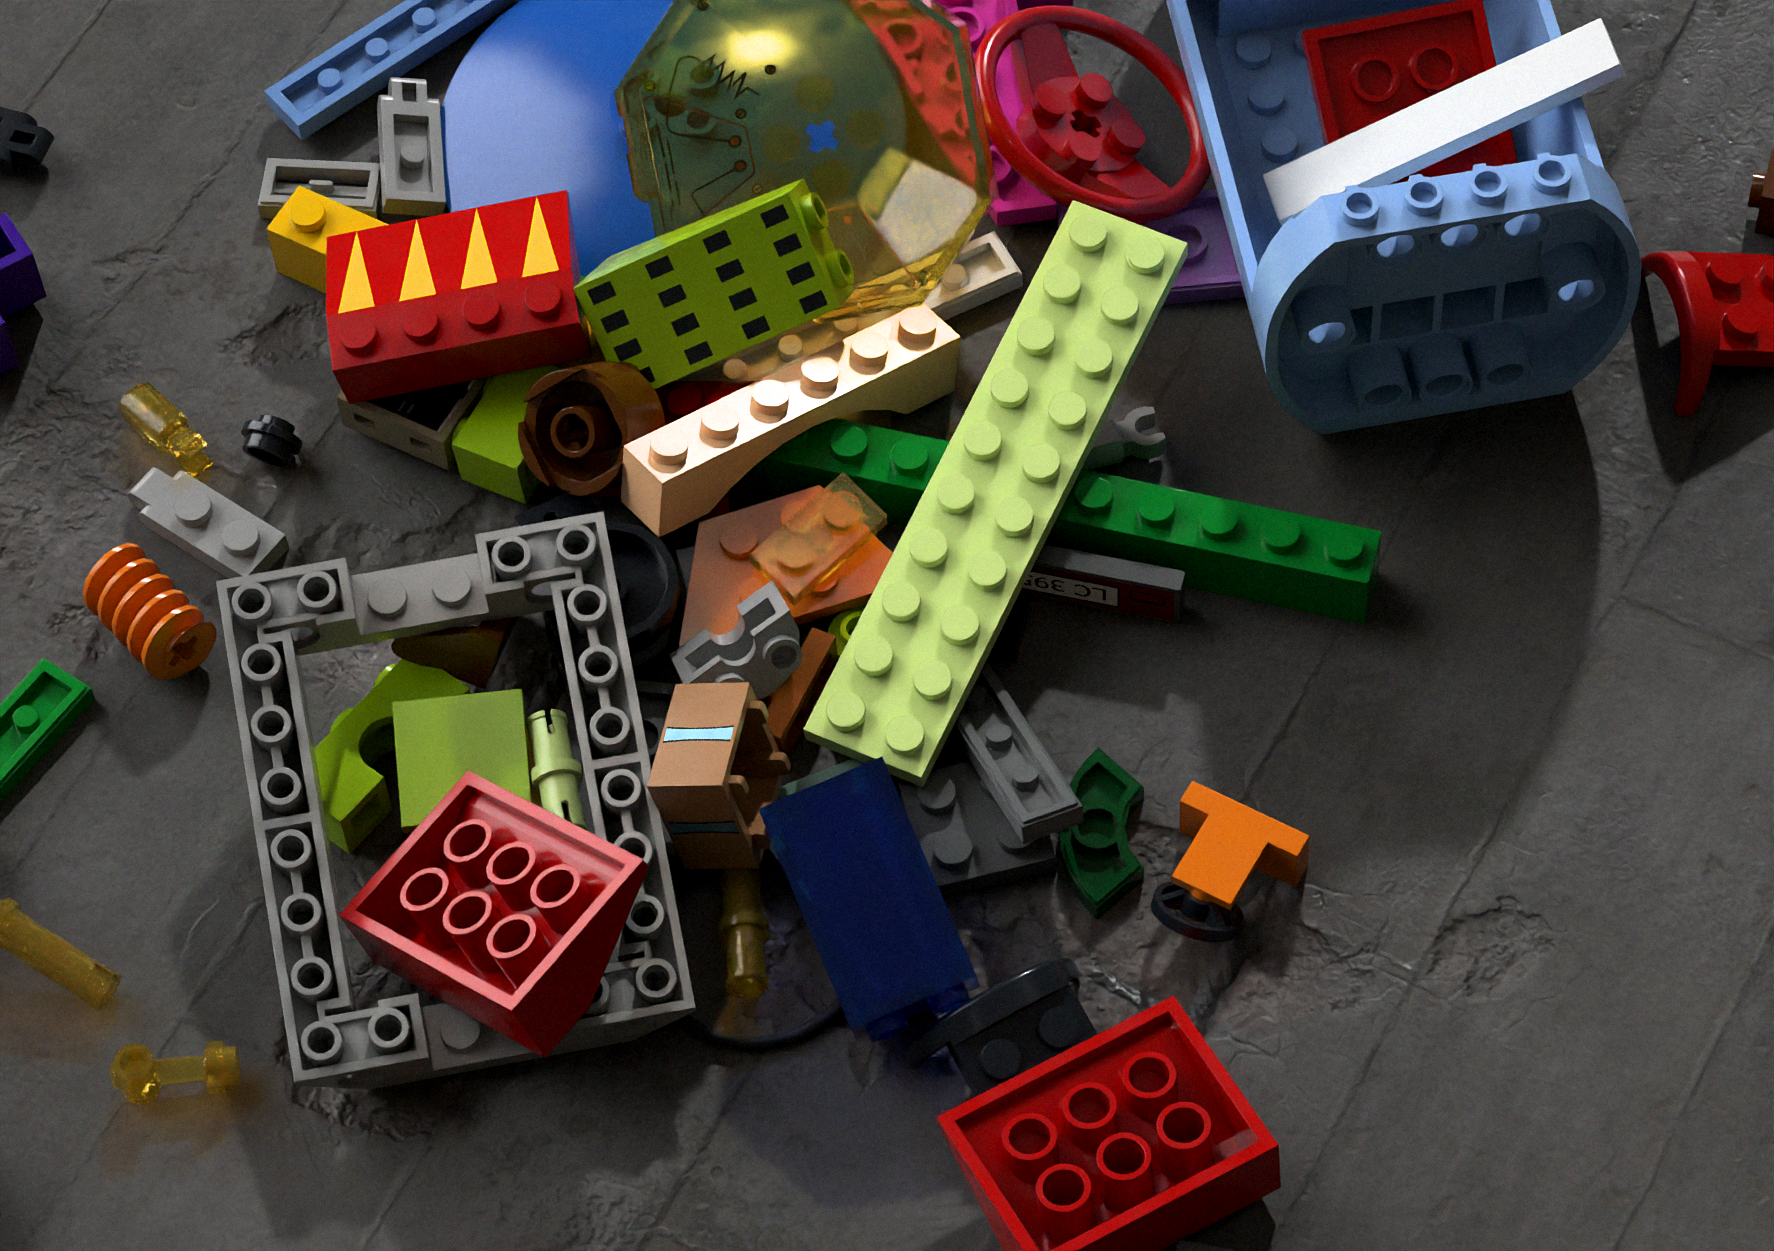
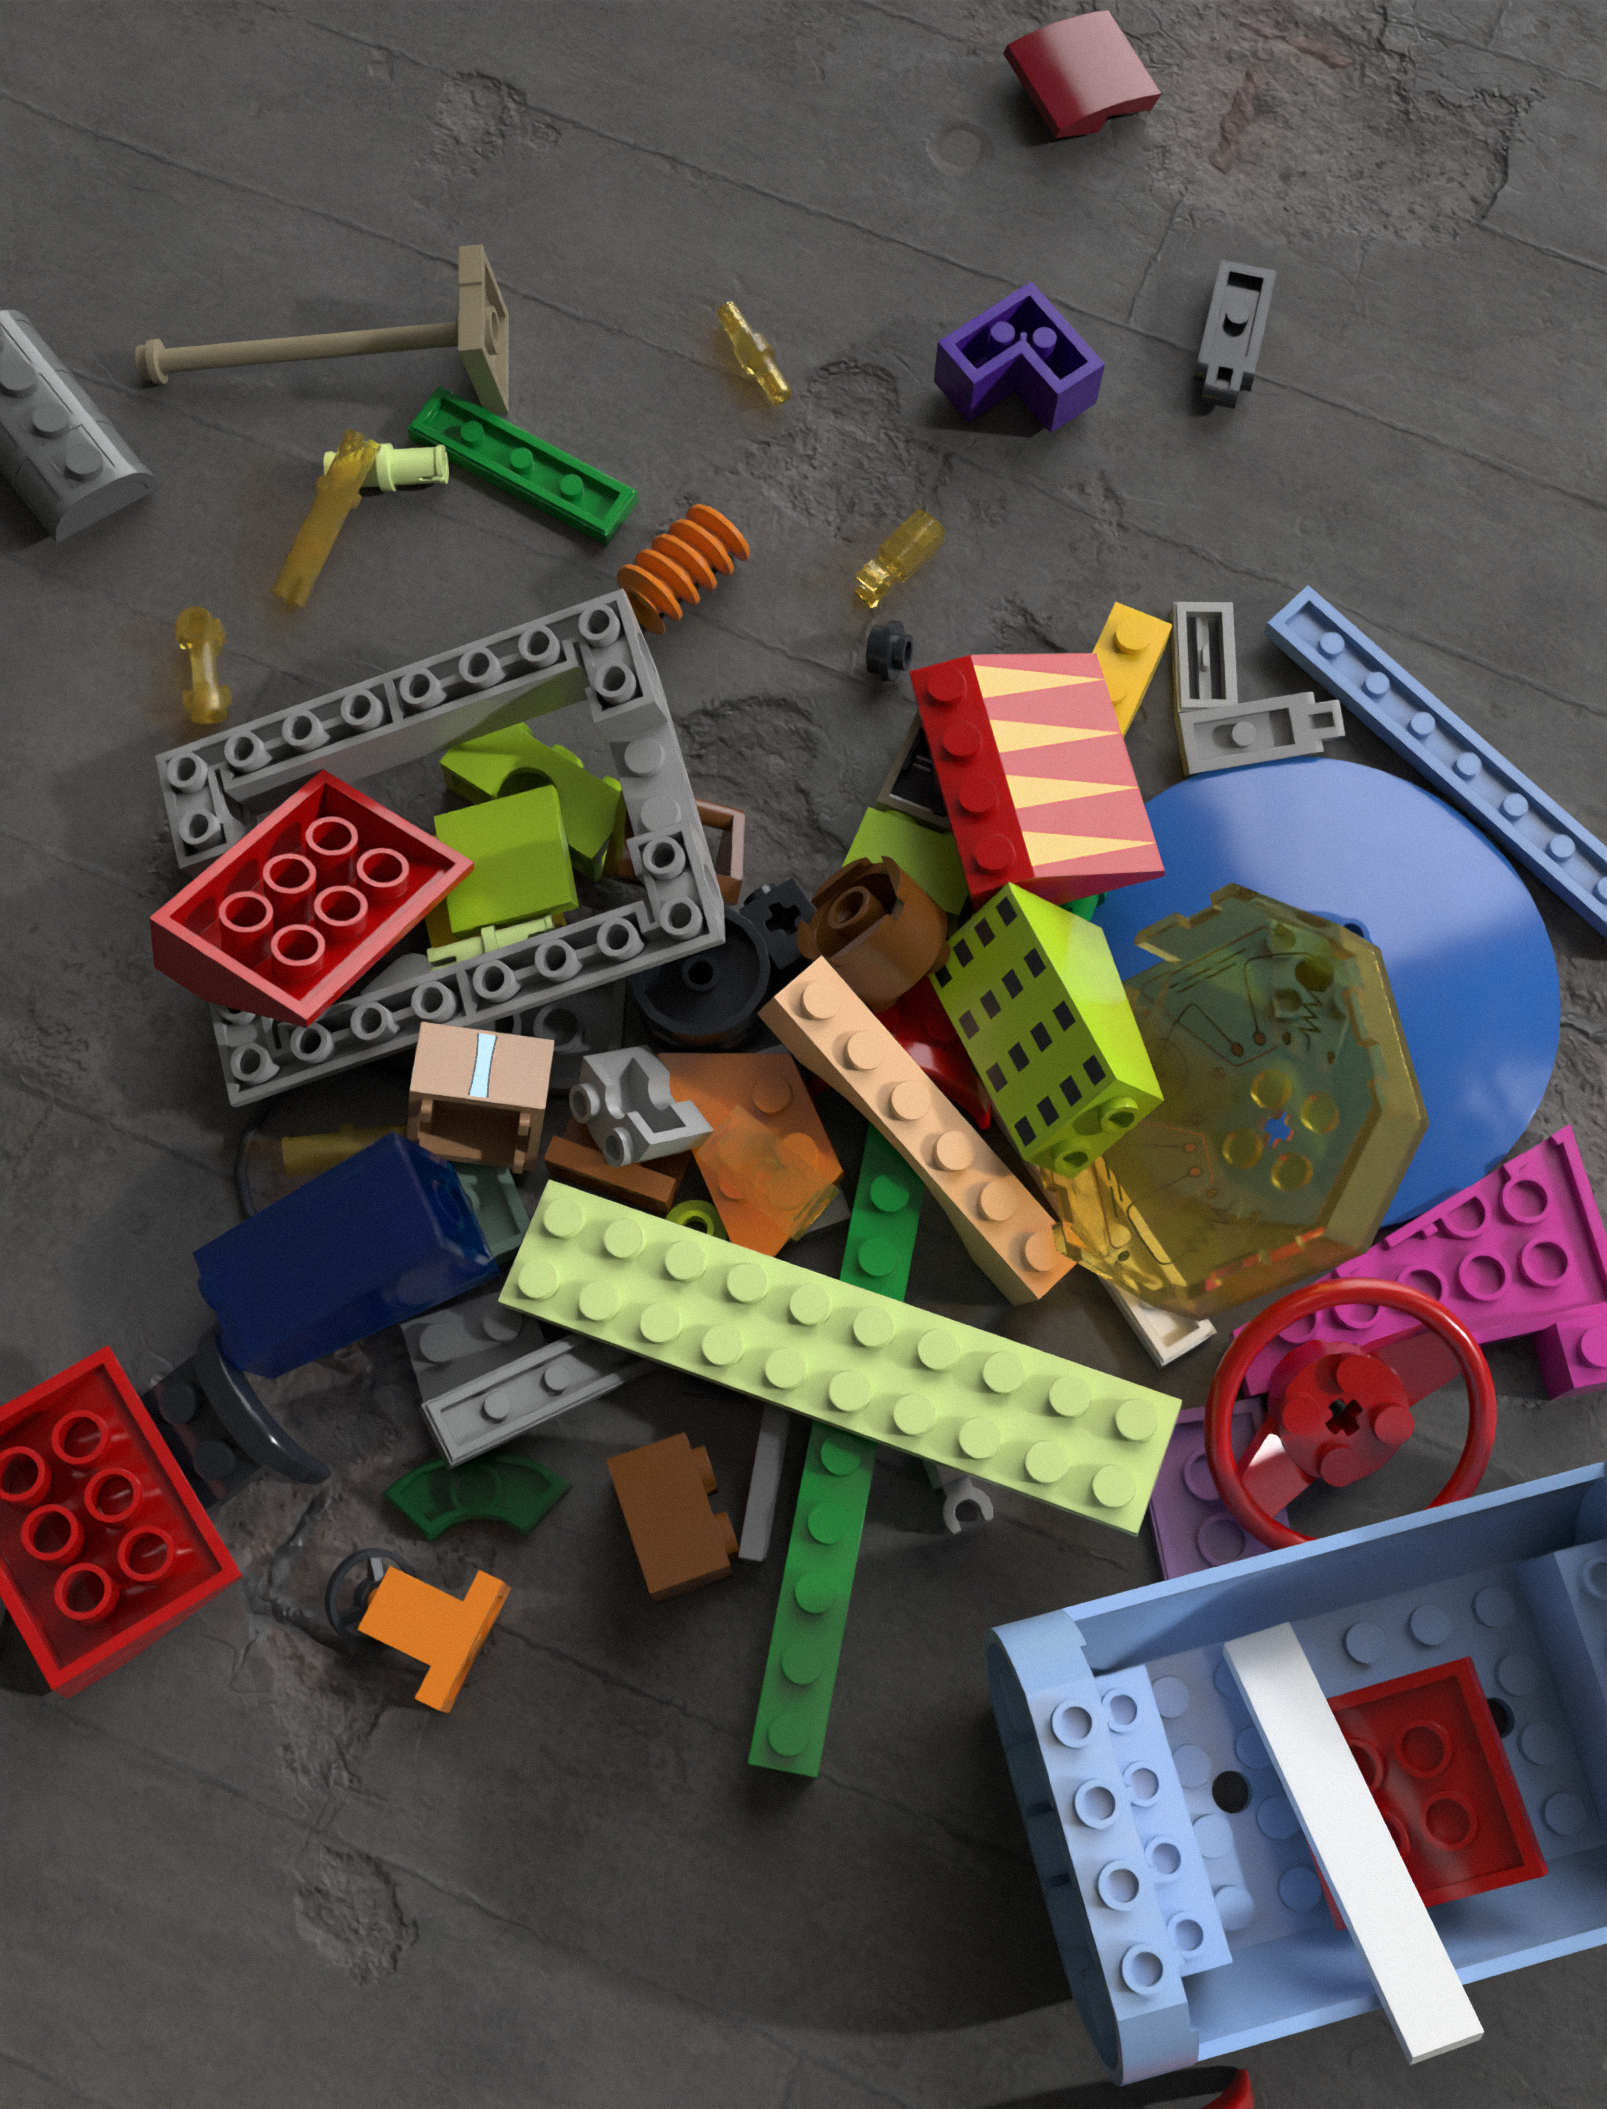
camera: 80 degrees right, 15 degrees up
(207, 524) = (796, 612): light grey hinge -> none
(1142, 641) = (670, 1517): none -> reddish brown brick

